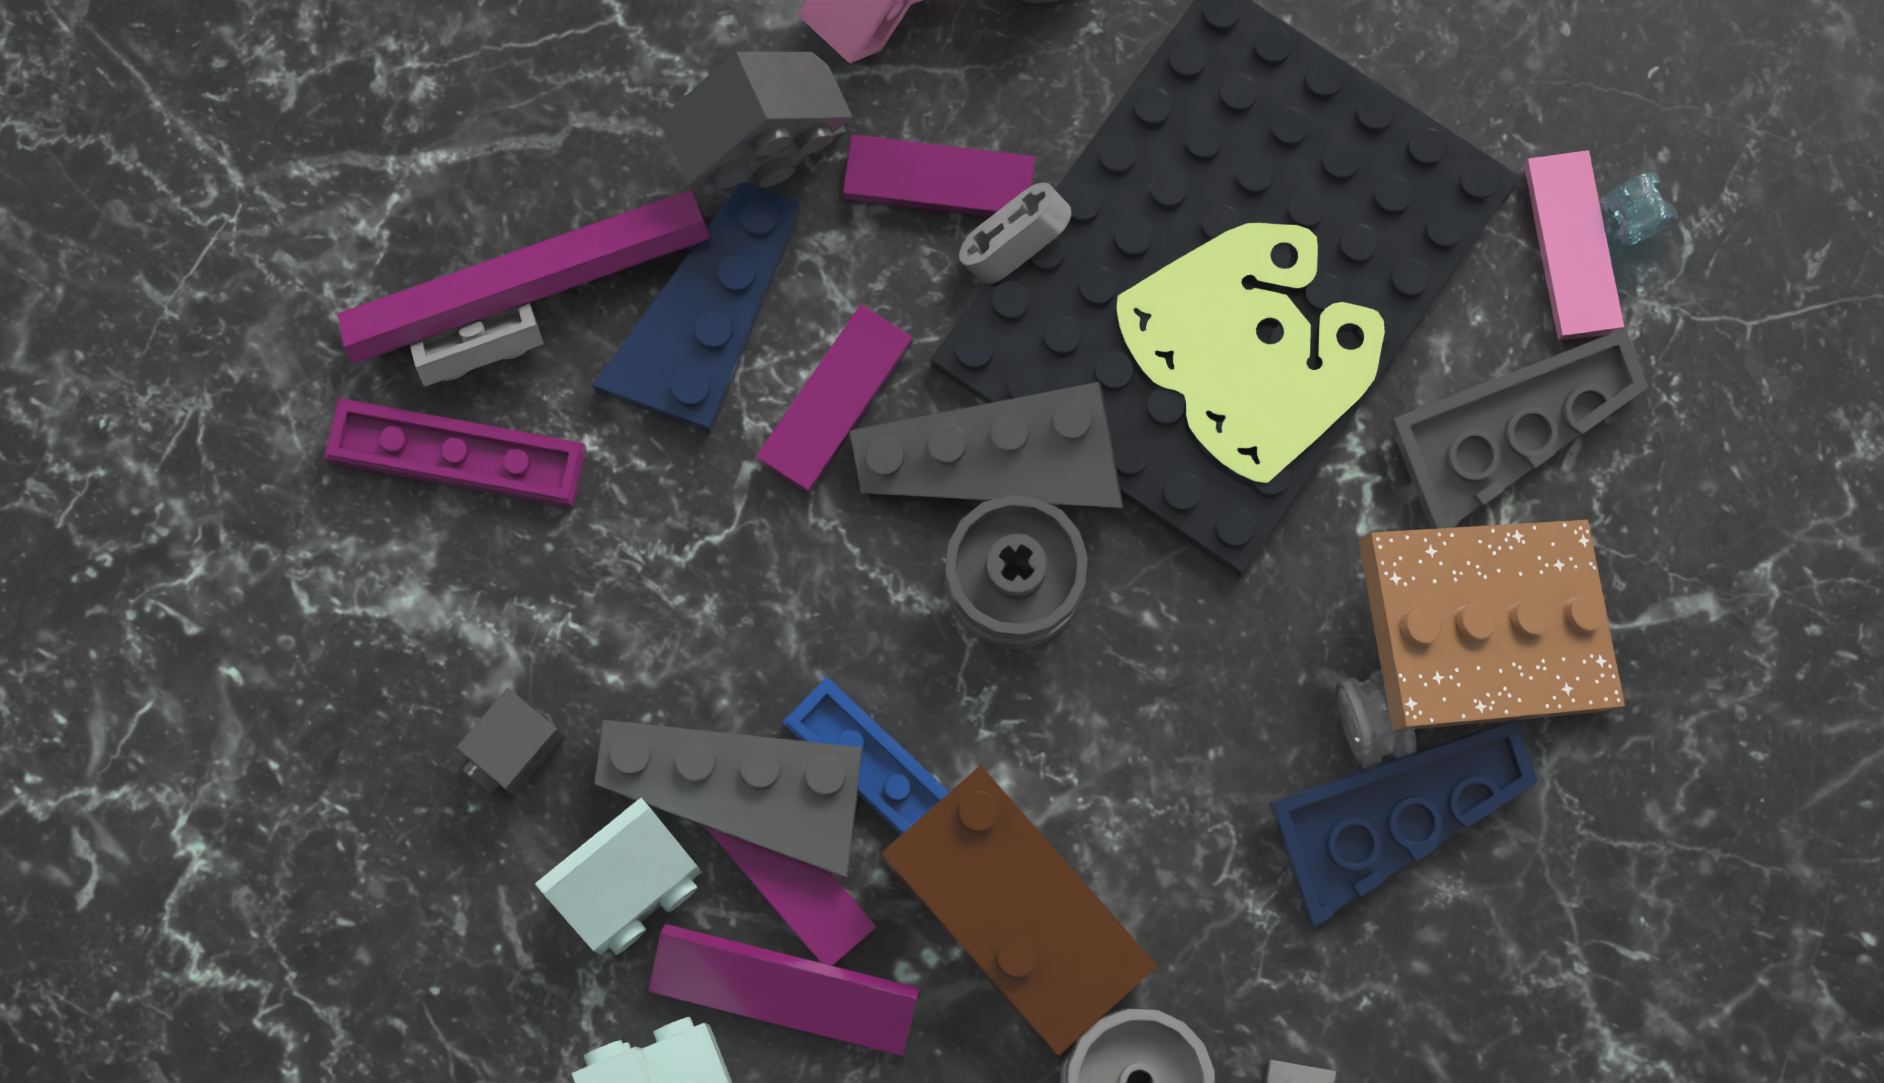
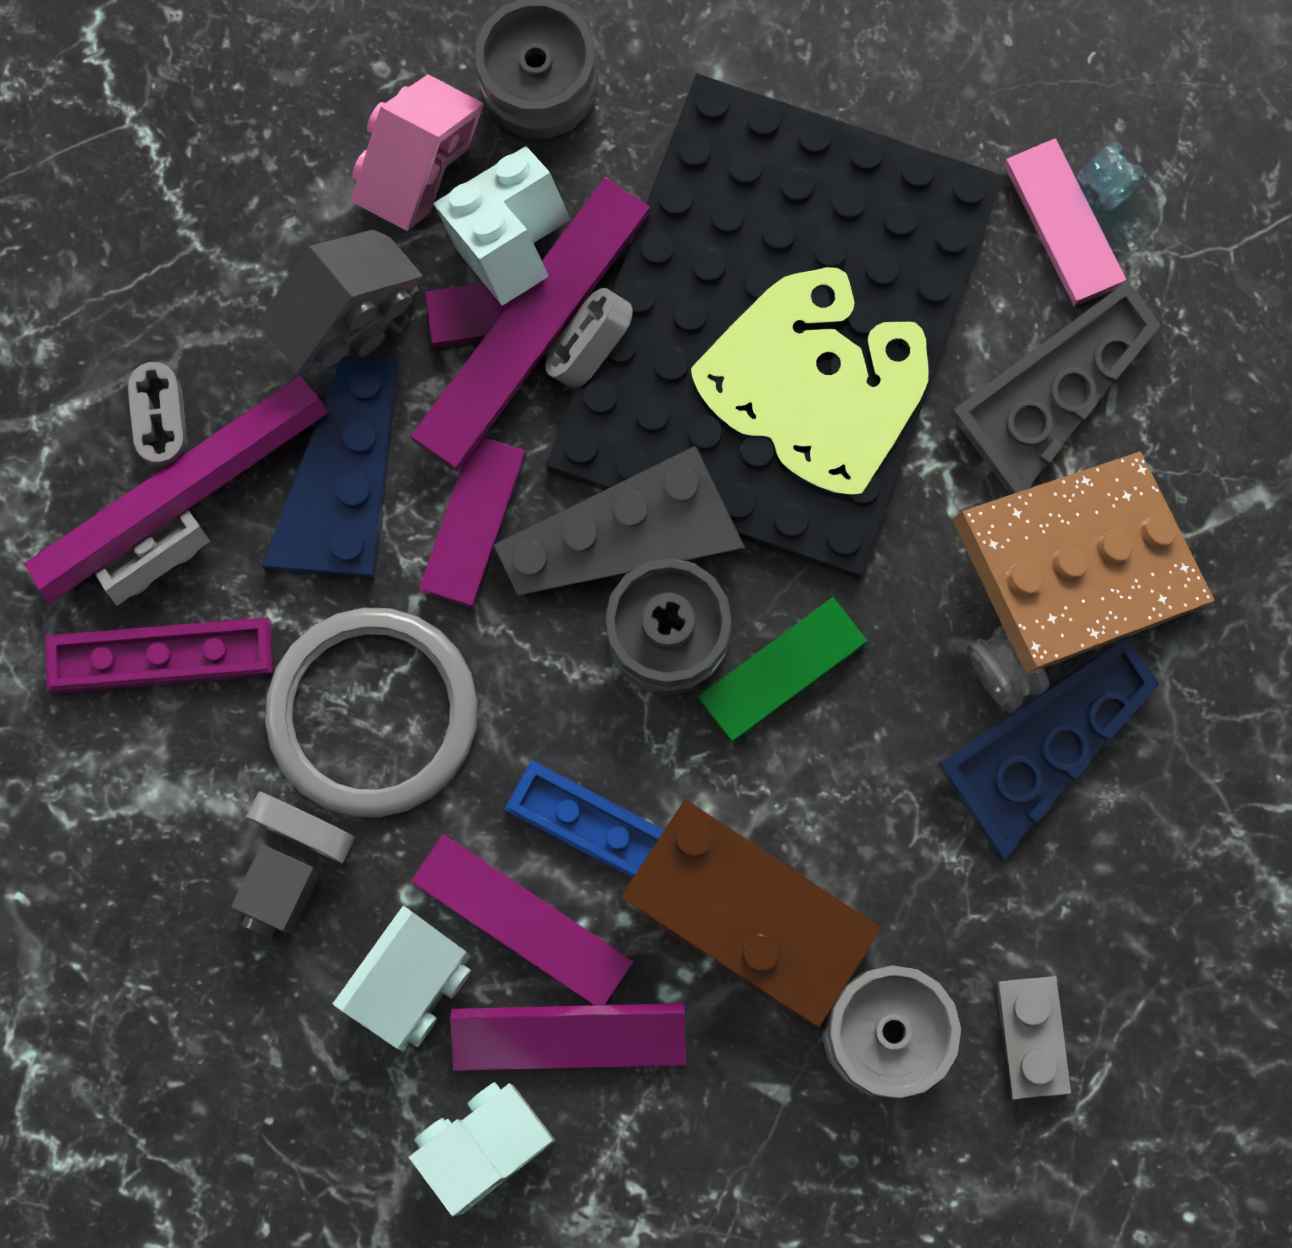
camera: 10 degrees left, 0 degrees up
(510, 190) = (145, 416): none -> light grey beam
(556, 681) = (300, 827): none -> light grey beam
(685, 675) = (371, 801): none -> light grey wedge
(749, 787) = (497, 872): dark grey wing -> none
(953, 77) = (501, 218): none -> light aqua brick
(956, 201) = (530, 325): none -> magenta tile
(1127, 653) = (782, 670): none -> green tile

